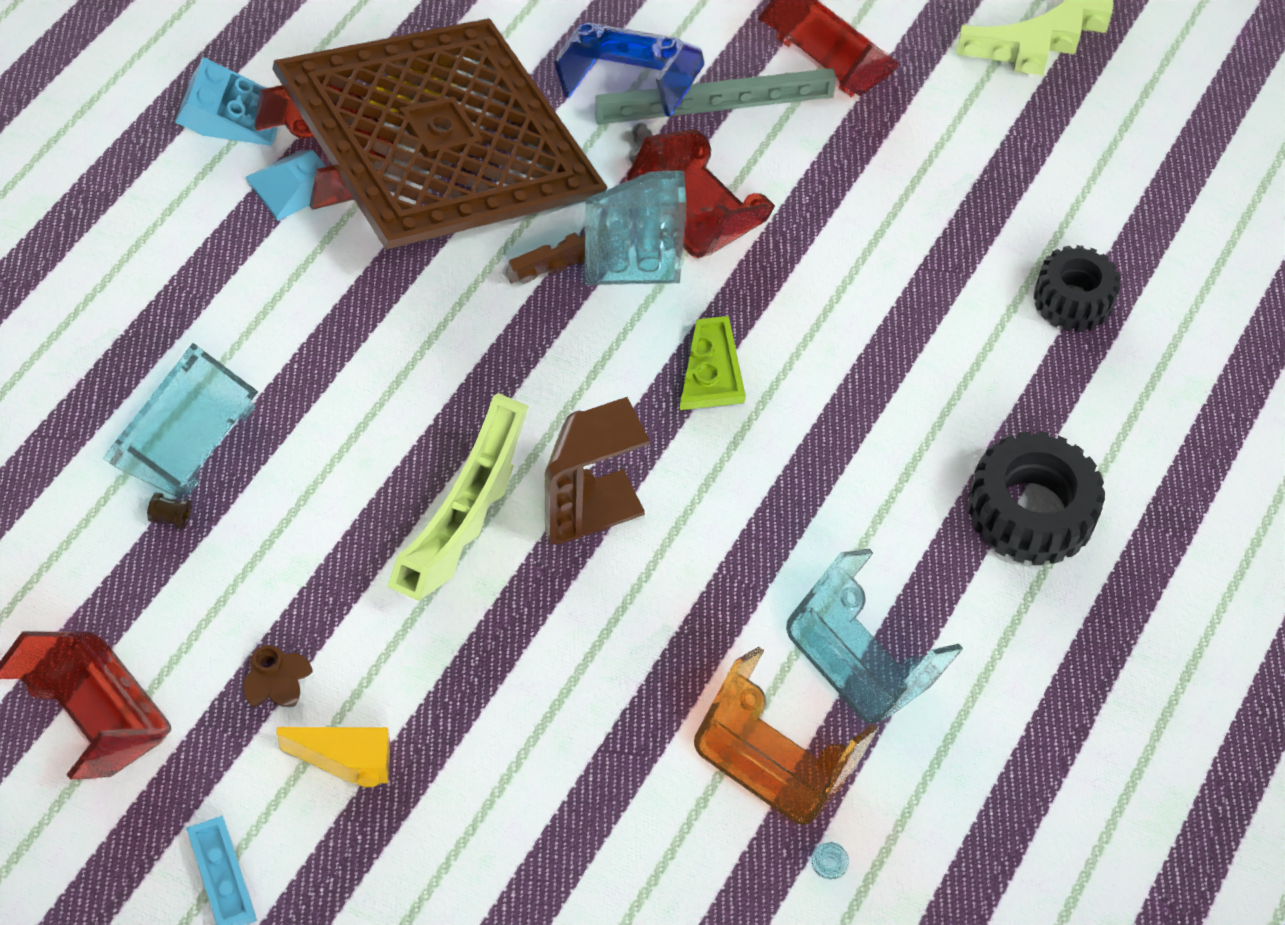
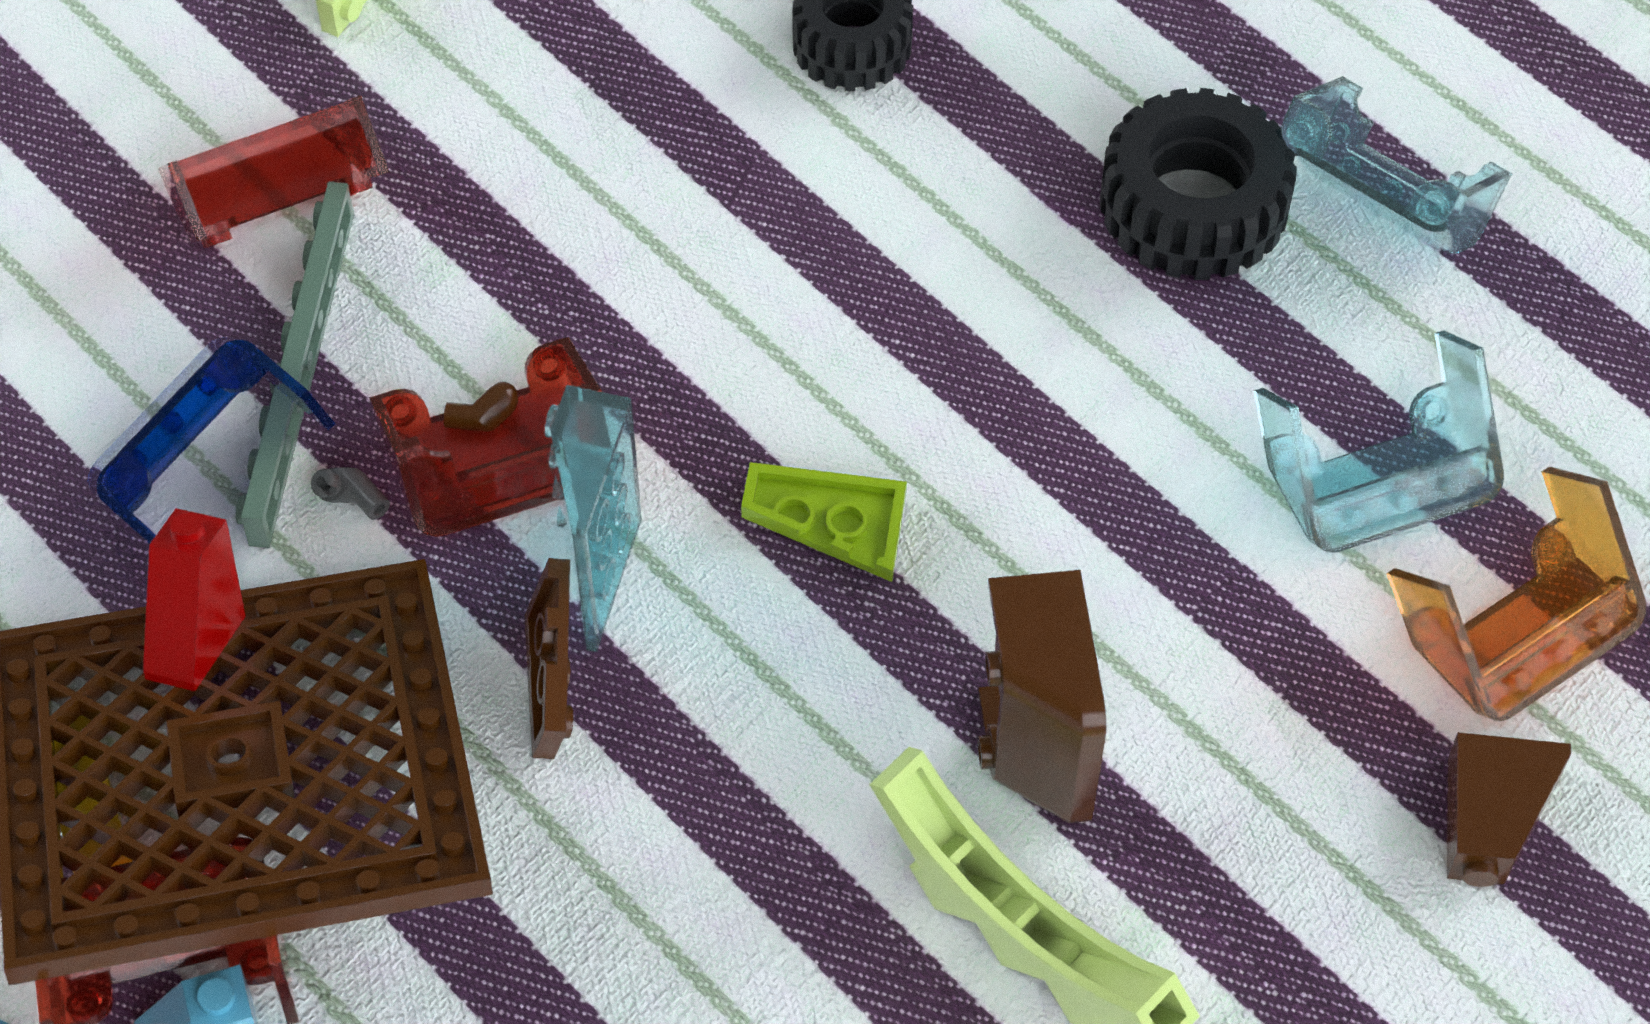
camera: 70 degrees left, 0 degrees up
(520, 78) = (190, 599): none -> red slope
(630, 755) = (1495, 802): none -> reddish brown slope
(716, 188) = (486, 412): none -> reddish brown arm
(1078, 589) = (1329, 139): none -> clear light blue windscreen

